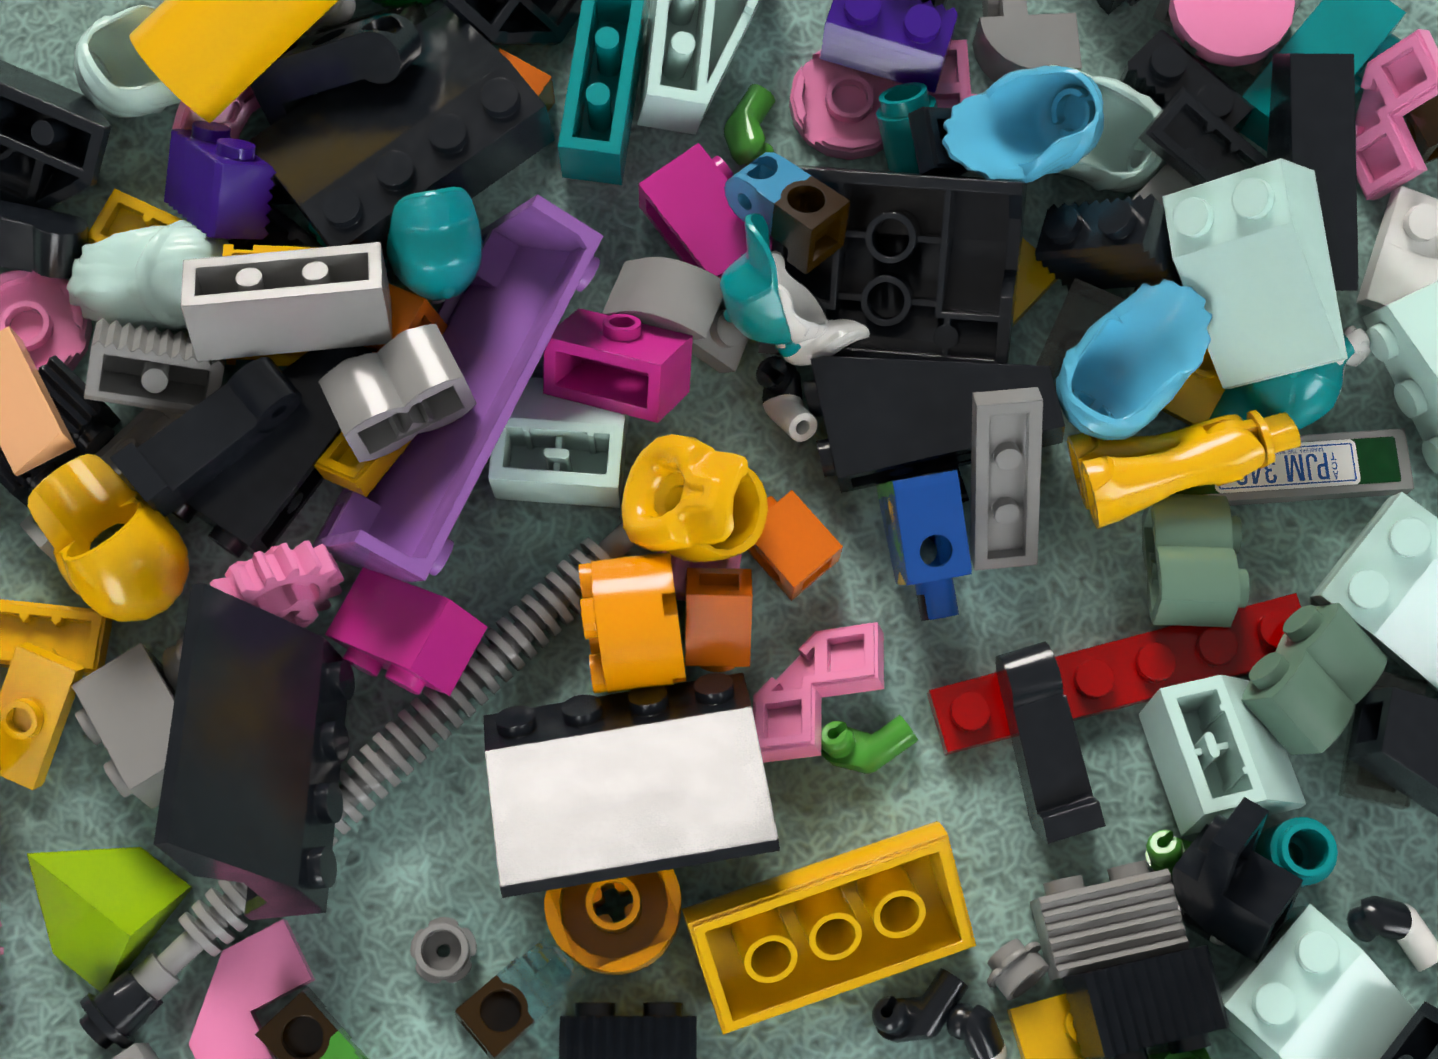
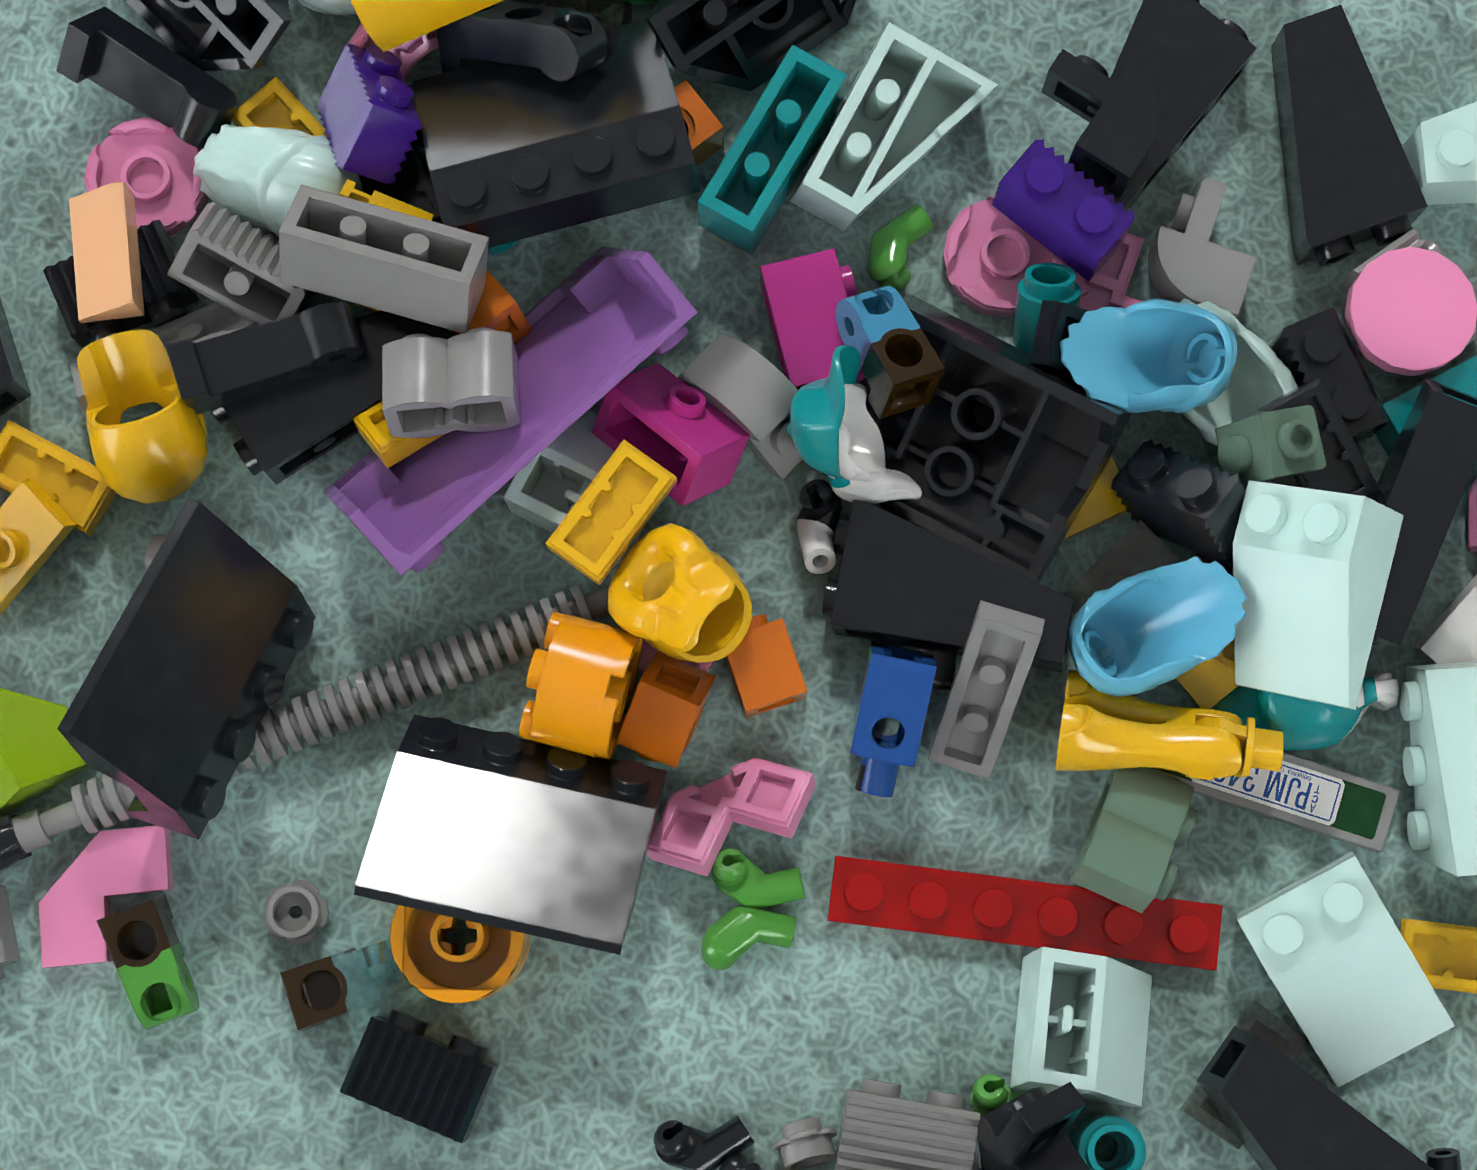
camera: 25 degrees right, 5 degrees up
(131, 712) = (96, 581): light grey brick -> none
(286, 581) = (278, 520): bright pink gear -> none
(405, 631) = (373, 609): dark pink brick -> none
(435, 243) = (543, 255): teal hair -> none
(596, 449) = (611, 512): none -> yellow plate
(830, 926) = (647, 1037): yellow brick -> none
(871, 794) = (741, 930): none -> bright green arm
(1046, 745) = (918, 954): black leg -> none
(1166, 159) = (1271, 445): none -> sand green bracket
(1313, 678) = (1197, 994): sand green brick -> none

